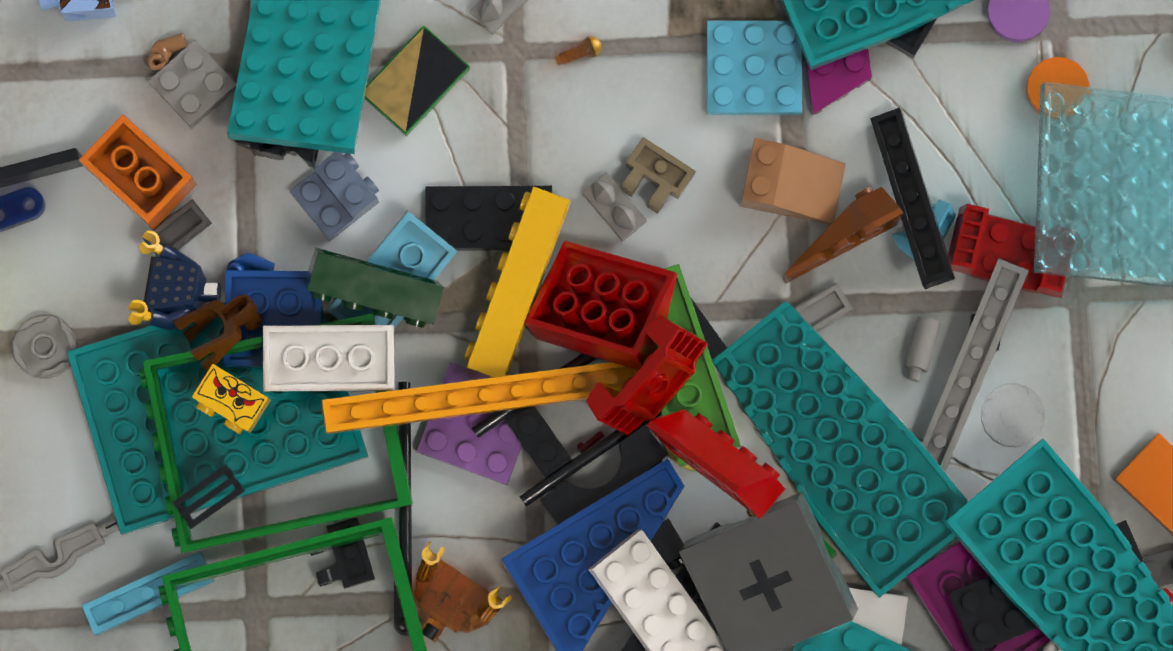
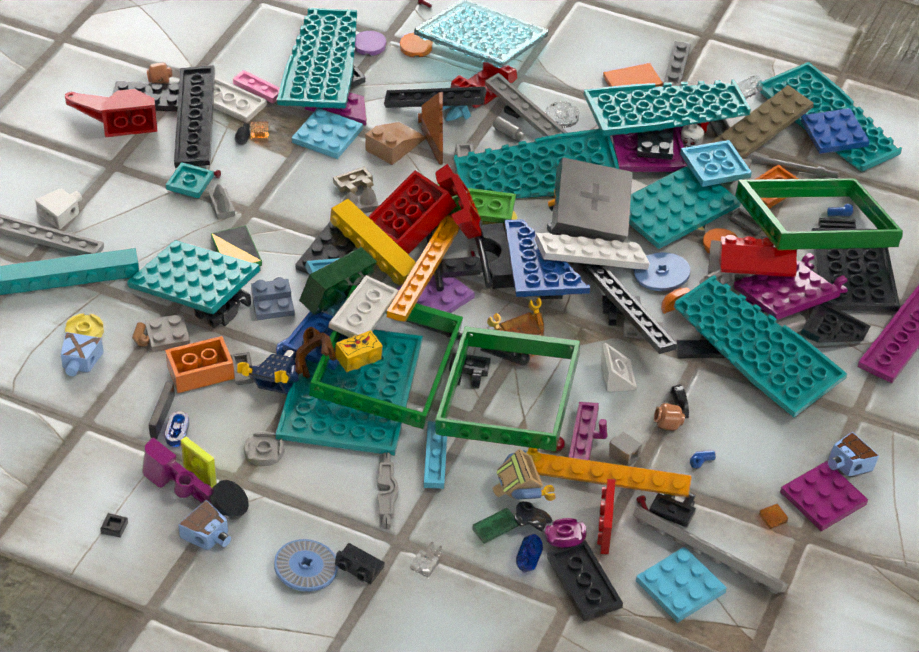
camera: 65 degrees left, 35 degrees down
(185, 512) = (403, 376): black tile -> none
(588, 47) = (271, 182): clear orange piece -> none
(718, 460) = (523, 186): red slope -> none

